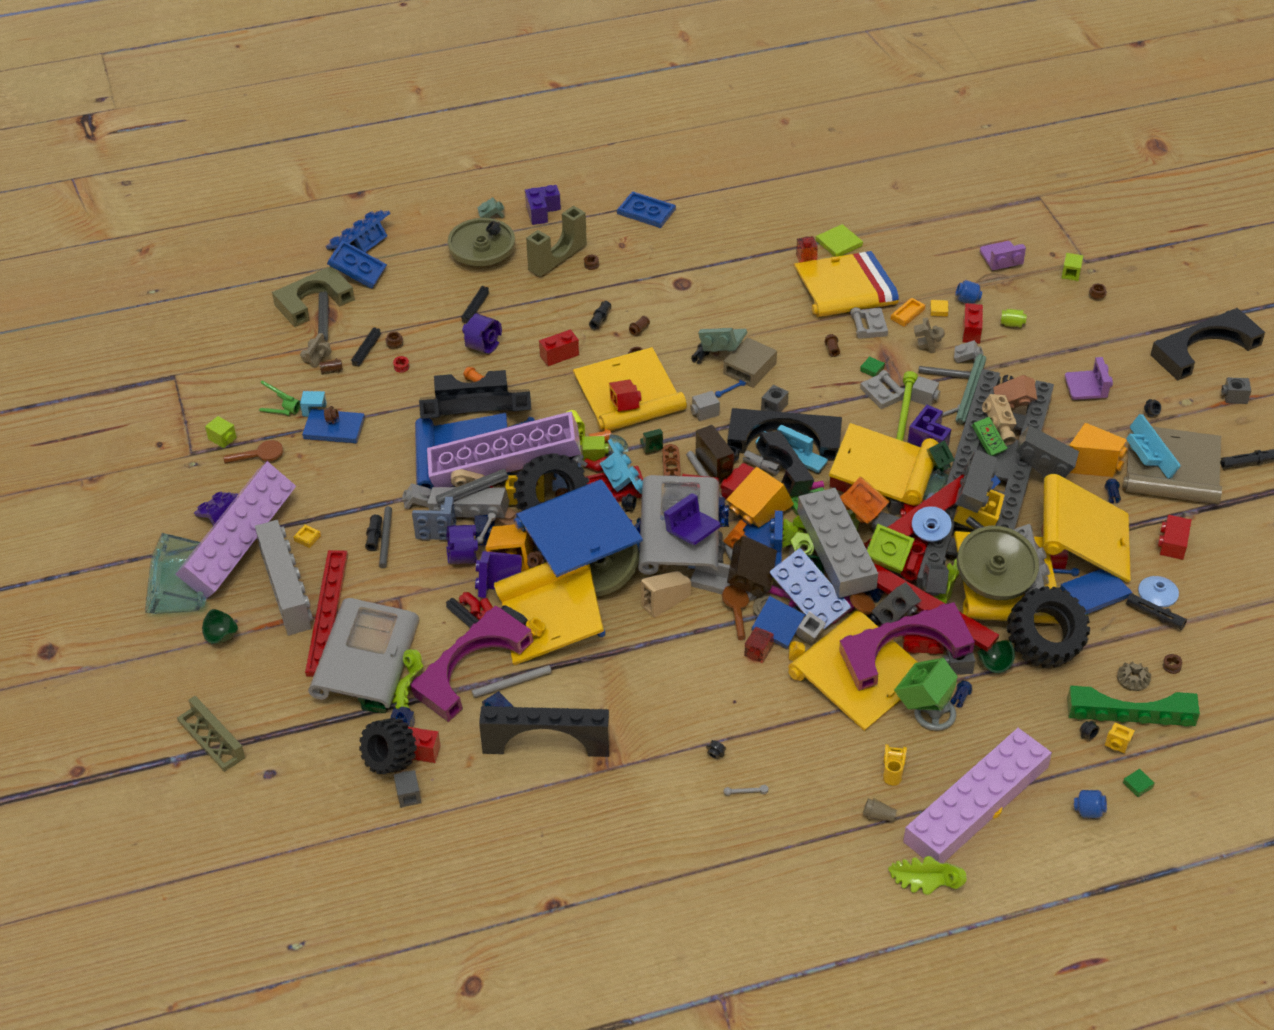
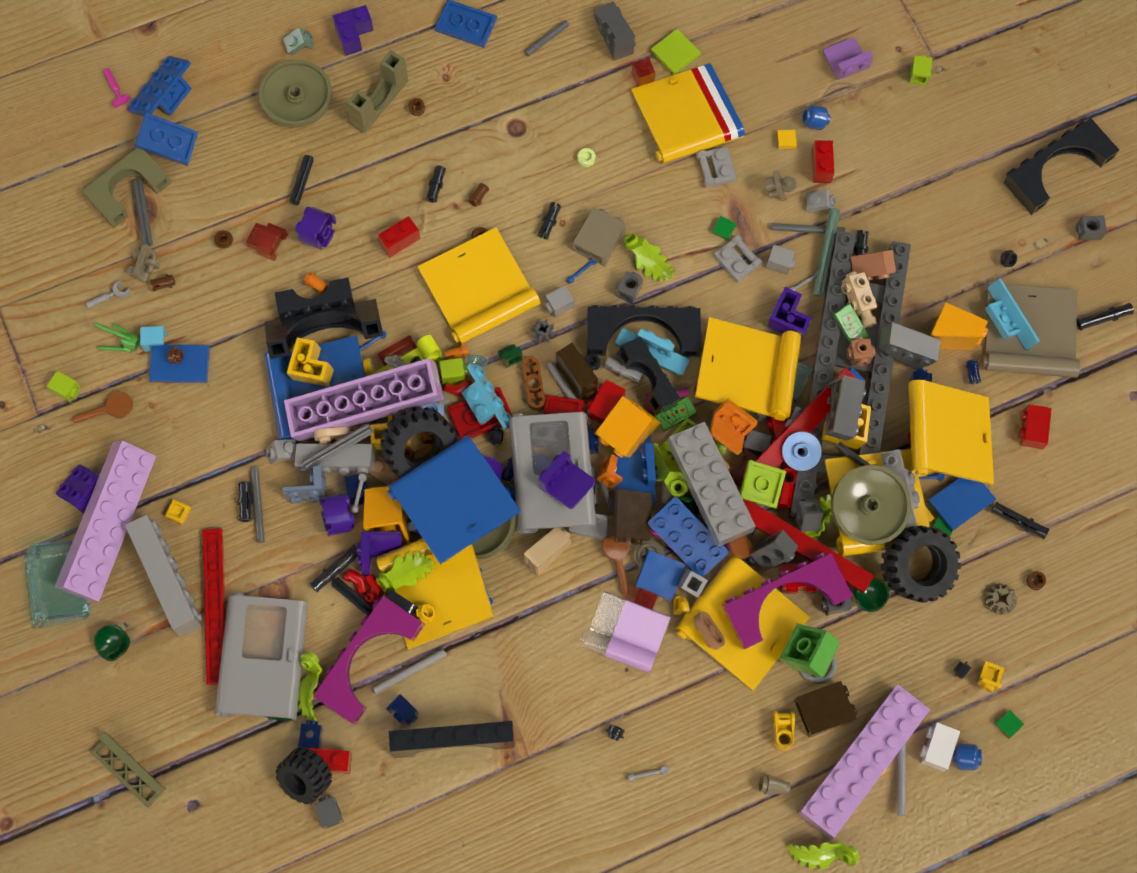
camera: 10 degrees left, 25 degrees up
(274, 373) = (104, 297): none -> light grey piece
(321, 239) = (115, 88): none -> dark pink piece
(366, 346) = (195, 251): black axle -> none
(401, 364) = (235, 277): red bush -> none
(435, 342) = (266, 239): none -> clear red piece
(450, 592) = (318, 584): none -> black pin
(454, 424) = (305, 364): none -> yellow brick
(493, 228) = (306, 76): black plate -> none
(521, 592) = (406, 571): none -> lime plant
(535, 555) = (413, 534): reddish brown plate -> none
(624, 395) = (476, 302): red brick -> none
(686, 426) = (546, 328): none -> dark grey gear
(718, 224) = (546, 38): none -> dark grey bar
(721, 338) = (569, 213): sand green bracket -> none
(737, 664) = (626, 632): none -> lavender door
(745, 308) = (586, 157): none -> yellowish green tile
(784, 220) = (614, 30): none -> dark grey wedge
(795, 381) = (648, 257): none -> lime plant
(820, 660) = (709, 630): none -> medium nougat plate
(831, 342) = (681, 203): reddish brown pin -> none
(907, 312) = (754, 147): light orange tile -> none
(909, 380) = (764, 249): lime piece -> none
(940, 749) = (825, 709): none -> dark brown brick
(941, 456) = (804, 357): dark green bracket -> none
(964, 689) = (842, 636): clear blue pin -> none
(1003, 454) = (860, 352): none -> nougat brick
(1013, 318) = (864, 148): lime brick -> none
(1018, 819) = (901, 782): none -> light grey bar
(1061, 792) = (939, 746): none -> white brick
(1090, 383) = (944, 230): medium lavender bracket -> none
(1097, 291) = (950, 98): reddish brown plate -> none
(1158, 591) = (1014, 498): light blue dish -> none
(1173, 710) = (959, 640): green arch -> none

